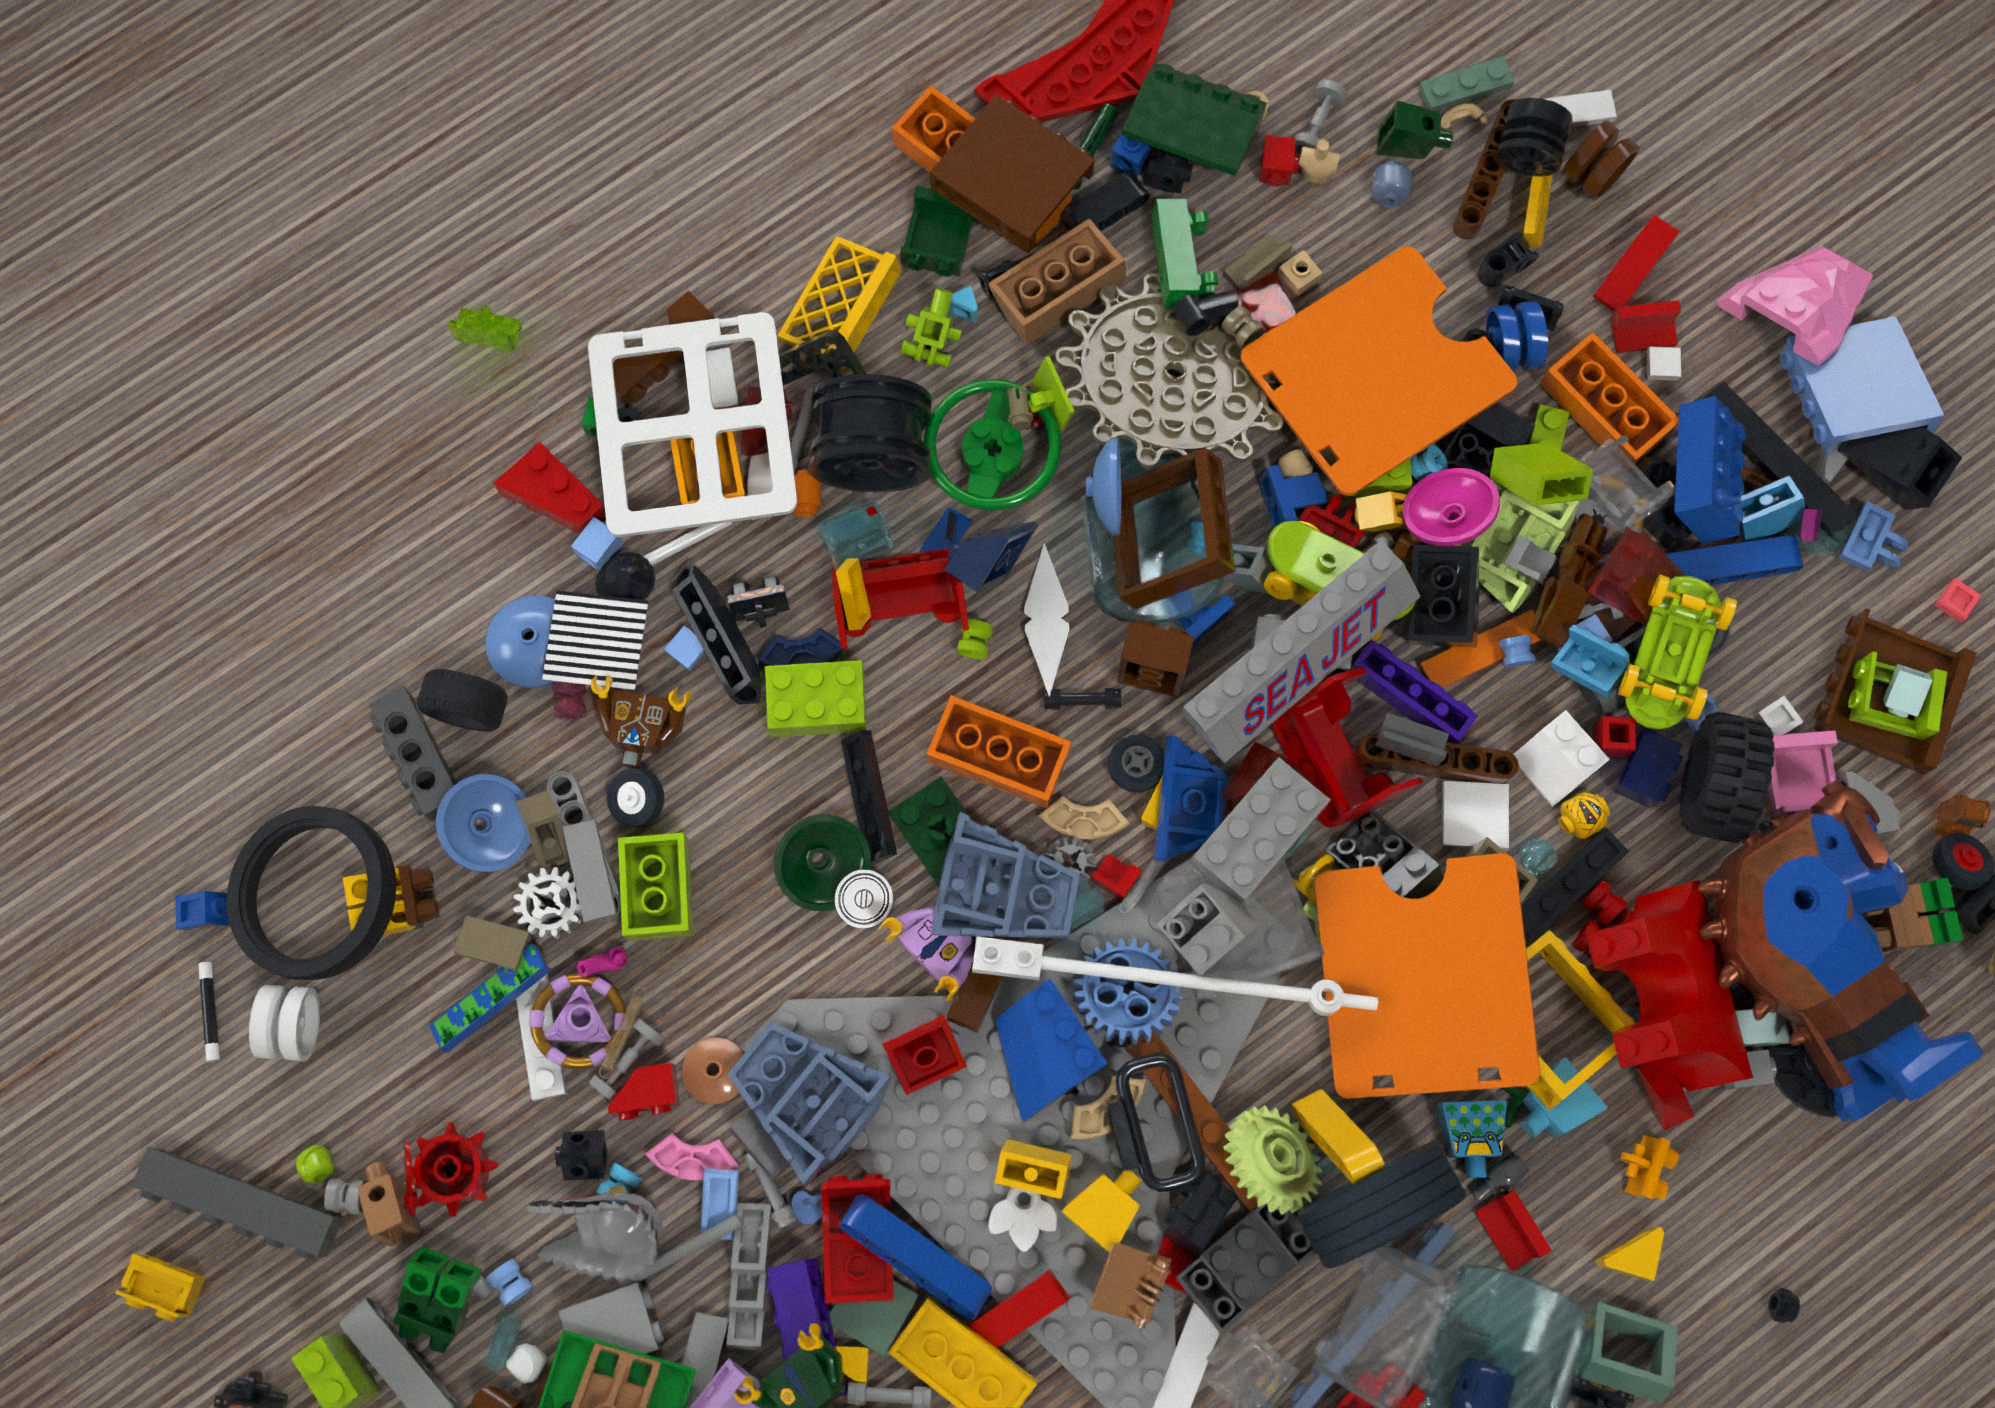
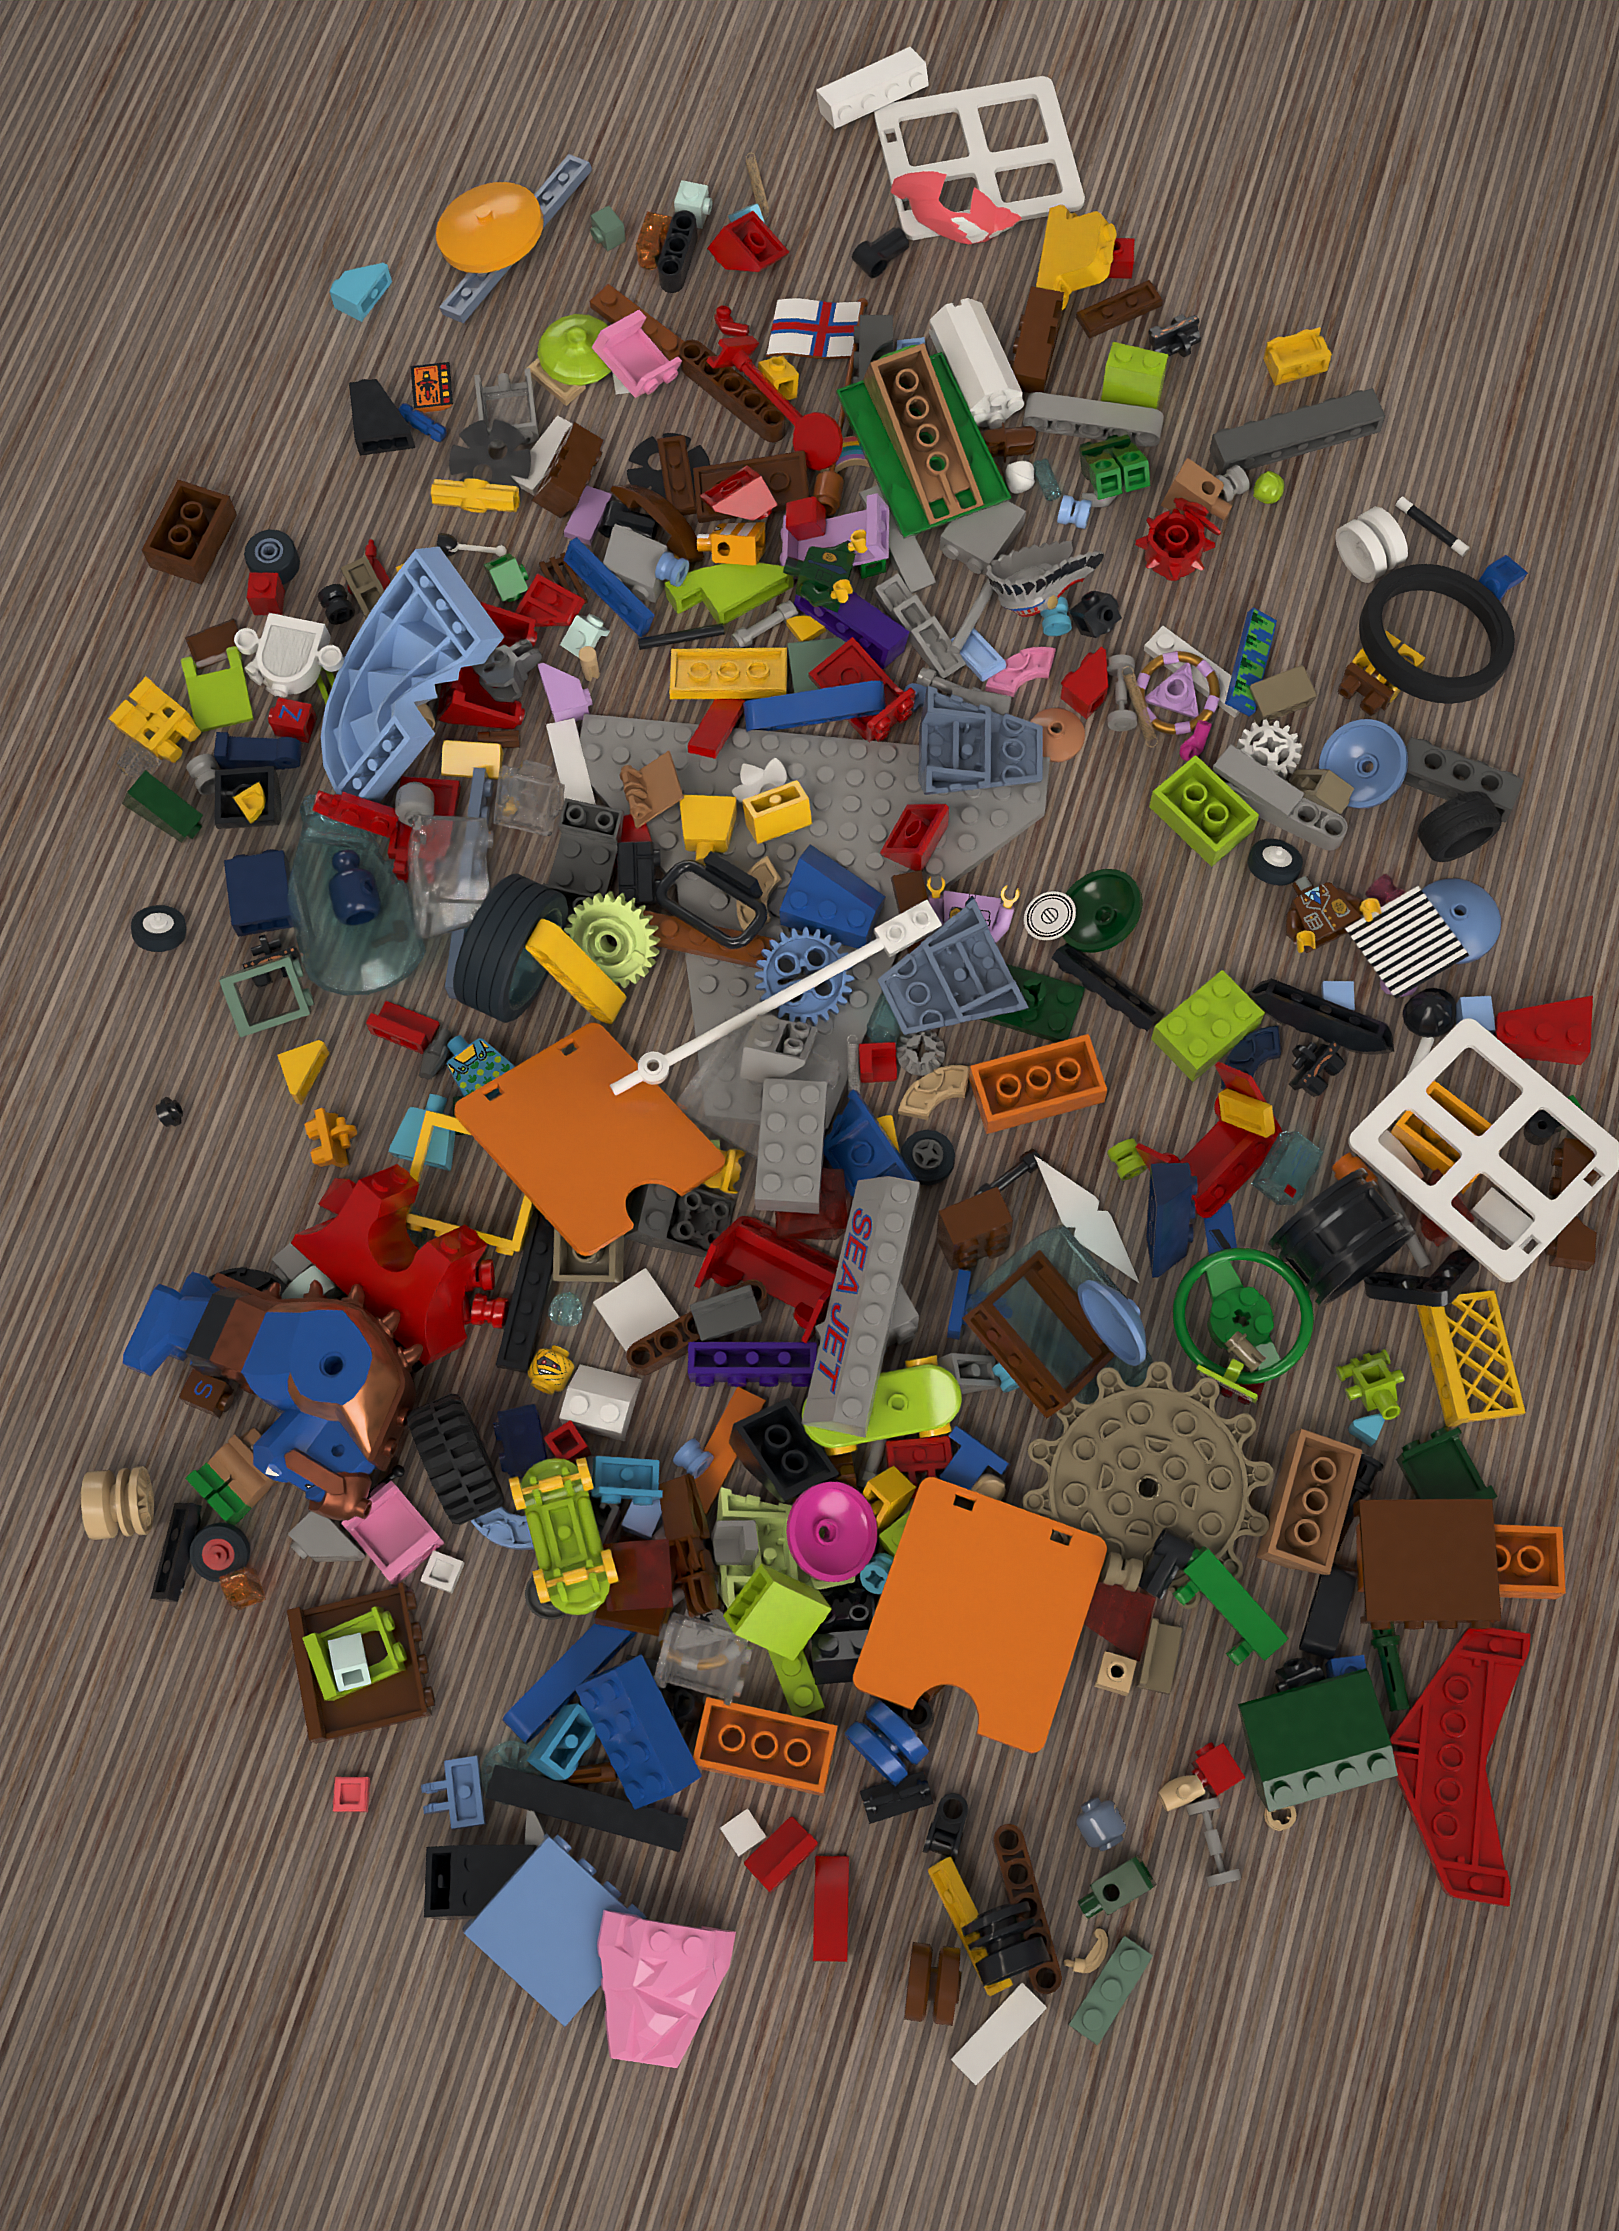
camera: 145 degrees right, 5 degrees down
(1810, 525) = (519, 1752): magenta tile -> none

